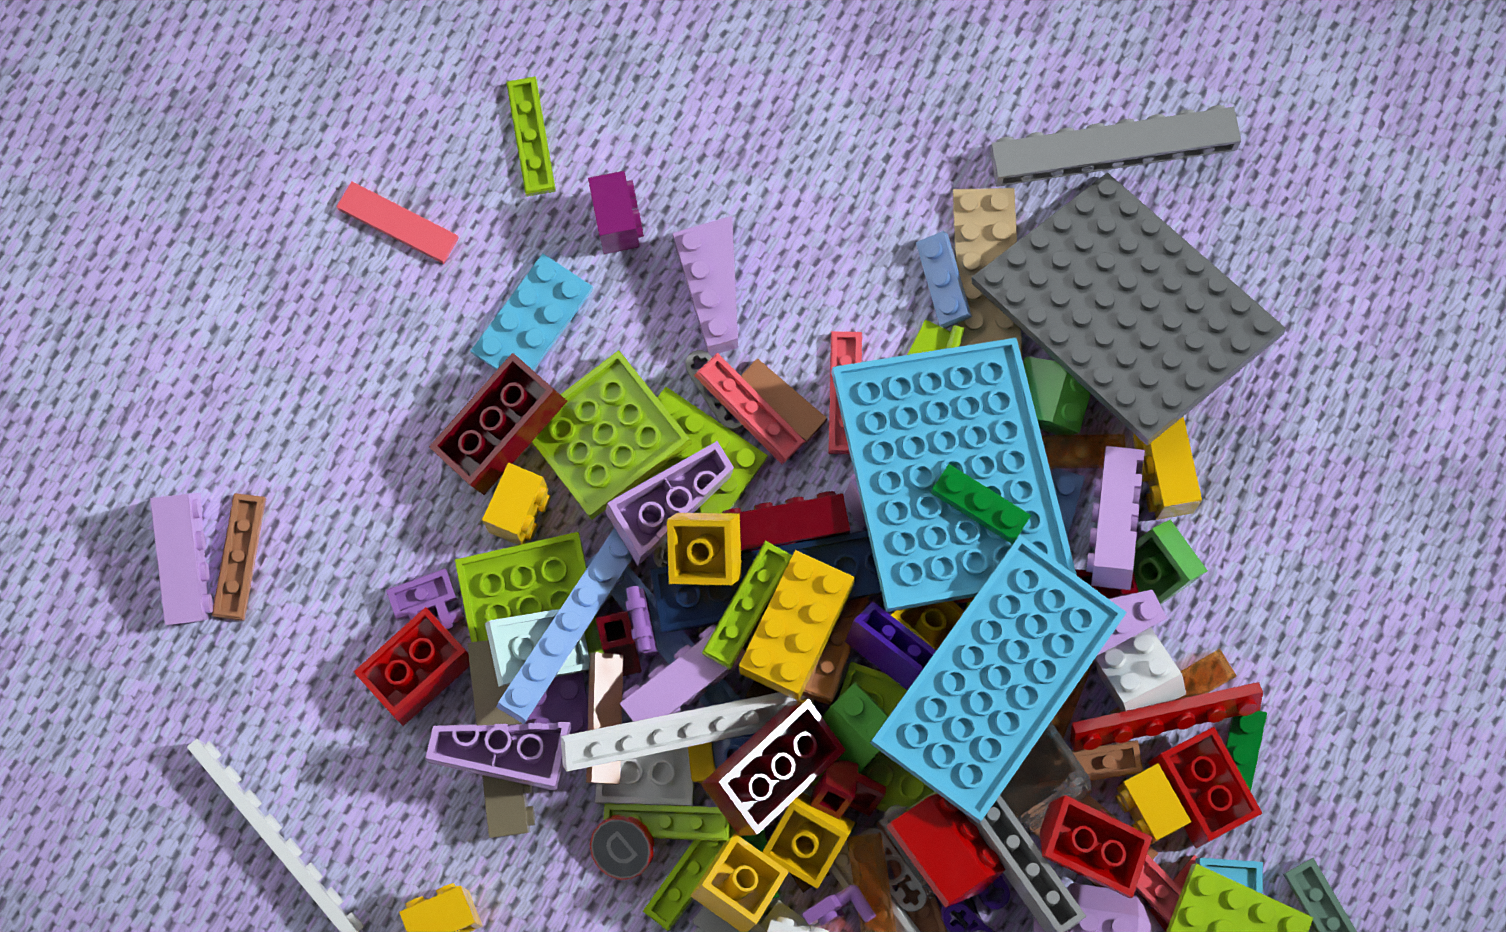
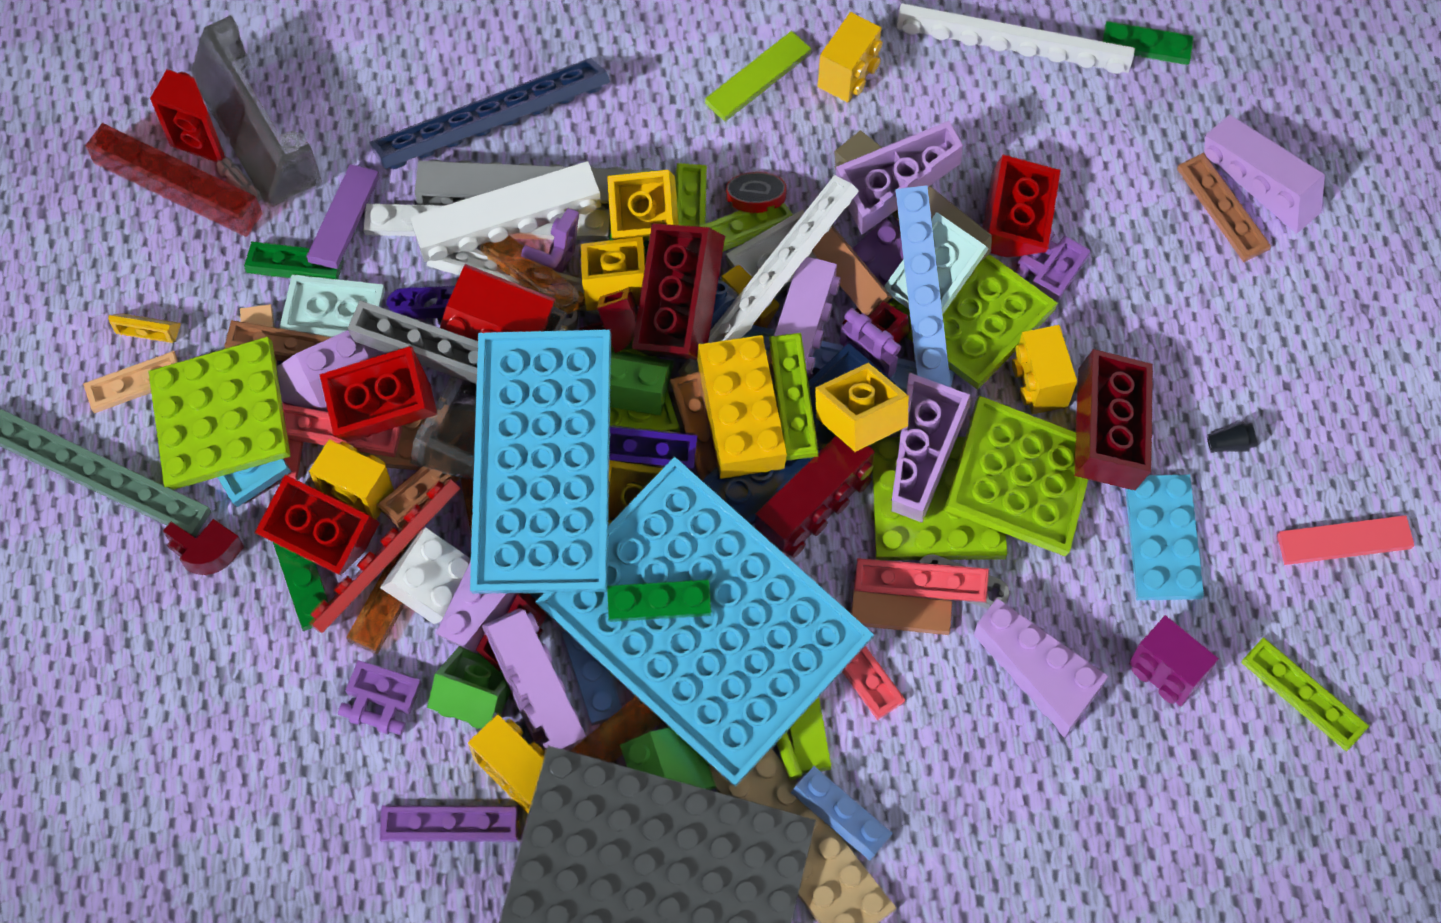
camera: 140 degrees right, 10 degrees down
(162, 757) = (1151, 42): none -> green plate
(412, 355) = (1234, 438): none -> black cone
(1231, 616) = (383, 688): none -> medium lavender plate
(1245, 476) = (449, 824): none -> medium lavender tile
(1312, 831) = (208, 552): none -> dark red brick

